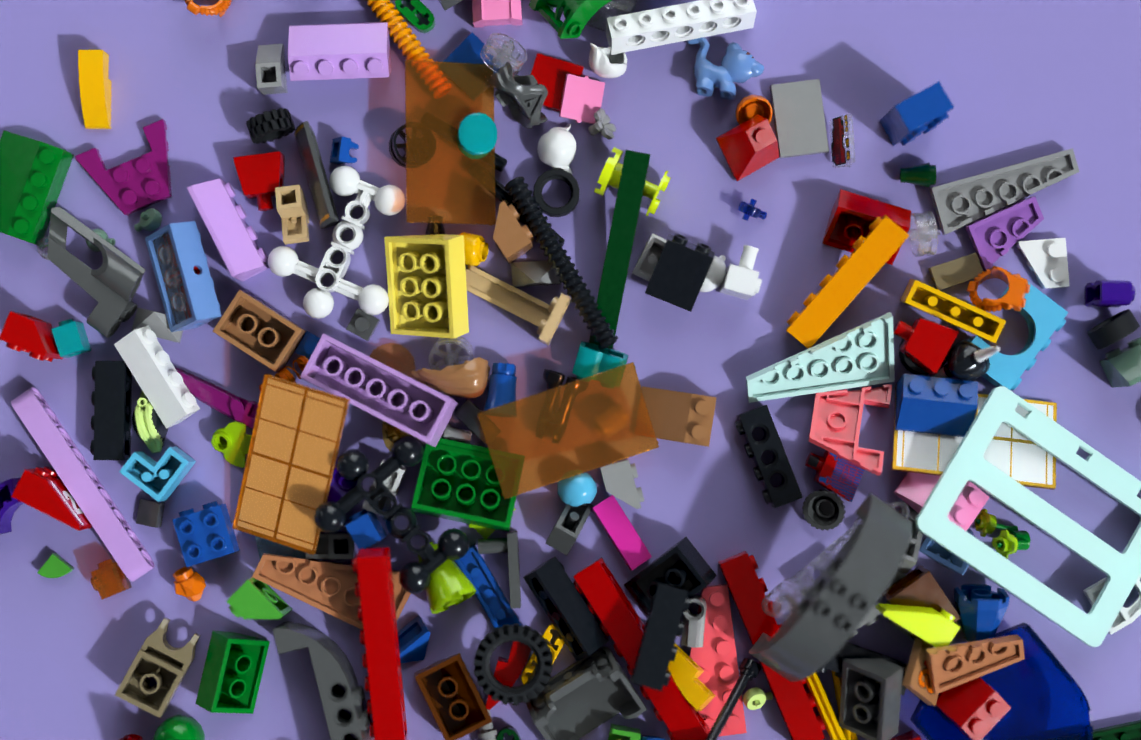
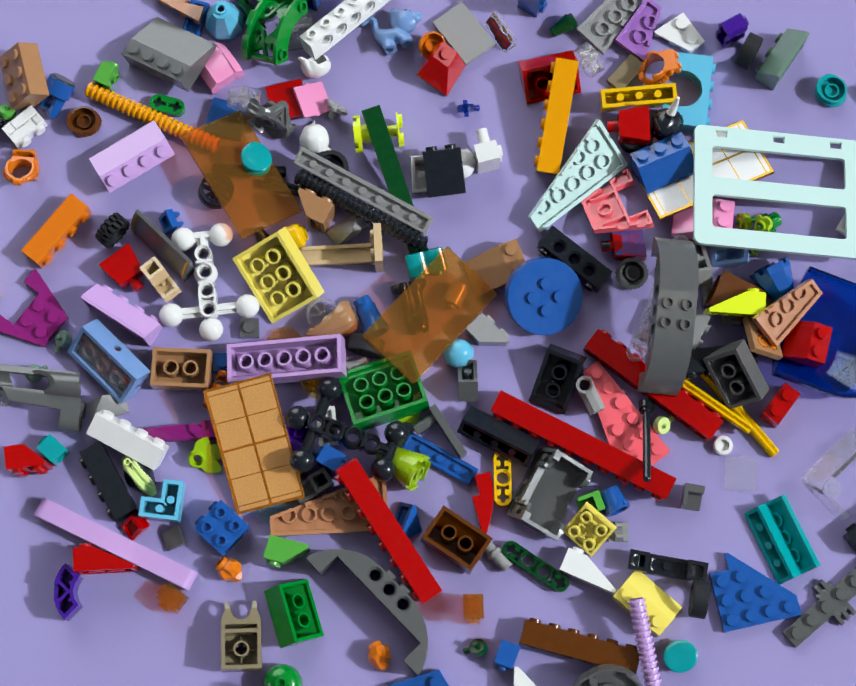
camera: 30 degrees left, 10 degrees down
(55, 567) = (127, 614): bright green tile -> none
(111, 476) = (134, 526): none -> red slope
(208, 90) = (56, 231): none -> orange brick
(271, 69) = (92, 194): light grey slope -> none
(492, 685) = (497, 470): black tyre -> none
(576, 241) = (363, 190): none -> light grey tile
(621, 532) = (505, 366): dark pink tile -> none
(659, 637) = (571, 412): black brick -> none
(685, 674) = (606, 432): yellow slope -> none
(708, 480) = (543, 296): none -> blue brick

